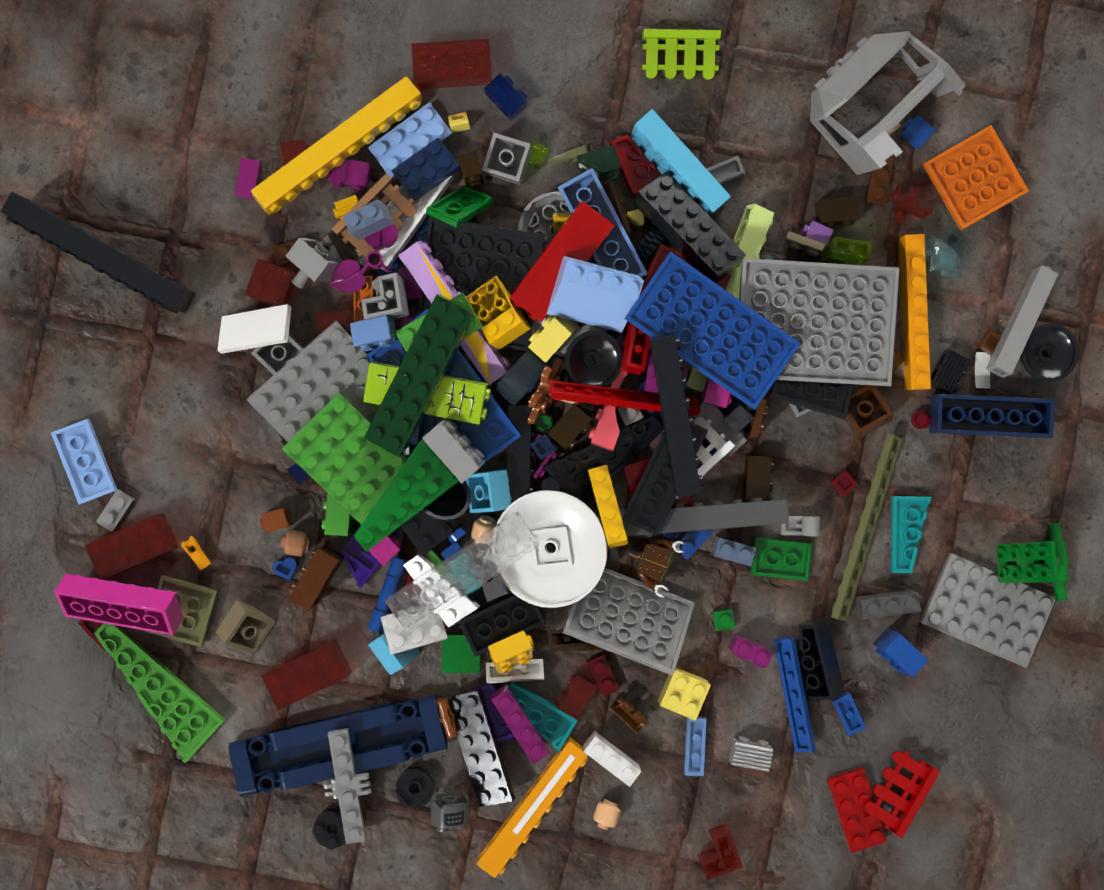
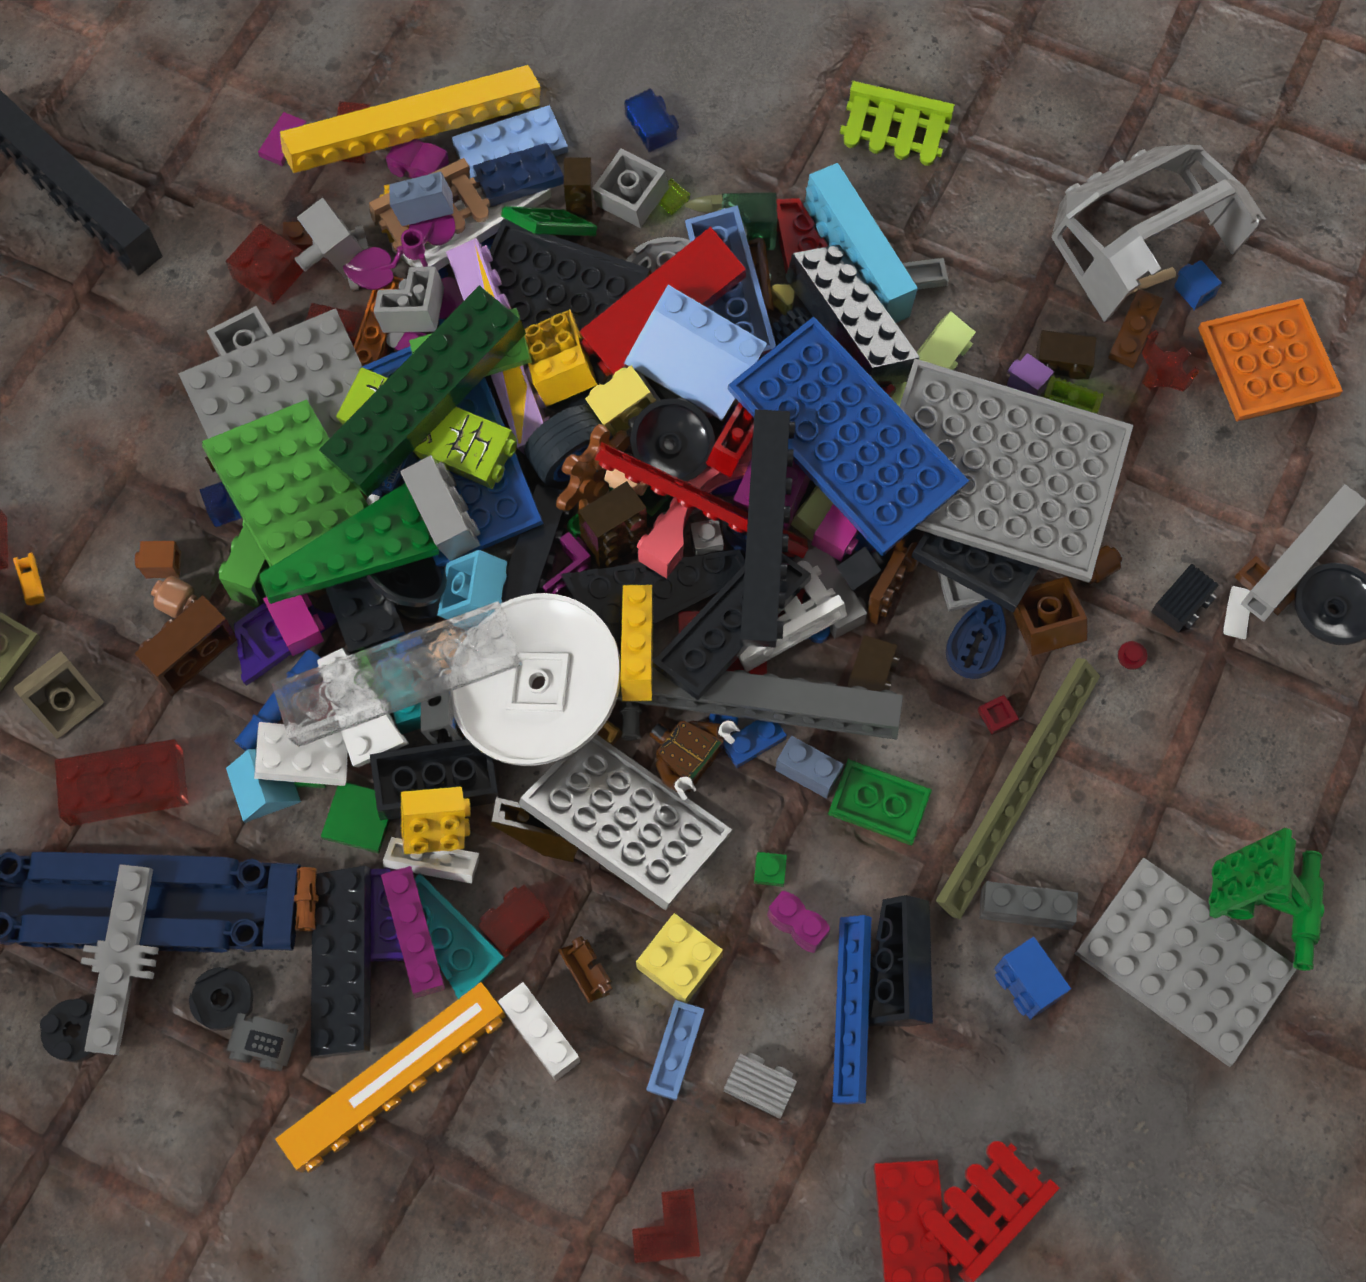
camera: 10 degrees right, 20 degrees down
(254, 329) = (223, 305): white tile -> none
(286, 568) = (144, 628): blue tile -> none
(373, 332) = (381, 335): medium blue brick -> none
(451, 64) = (591, 67): clear red brick -> none
(458, 122) = (580, 138): light yellow slope -> none
(543, 446) = (569, 547): dark blue tile -> none
(603, 675) = (563, 904): dark red plate -> none
(607, 814) = (506, 1120): light nougat head -> none
(799, 242) = (1011, 378): dark tan plate -> none
(801, 526) = (924, 759): light grey plate -> none
(809, 435) = (990, 647): none -> dark blue piece
(848, 714) = (931, 1063): blue plate -> none
(906, 530) = (1081, 800): teal wing -> none
(914, 312) = (1148, 509): light orange brick -> none
(943, 257) = (1205, 442): clear light blue brick -> none
(992, 416) = (1238, 671): dark blue brick -> none

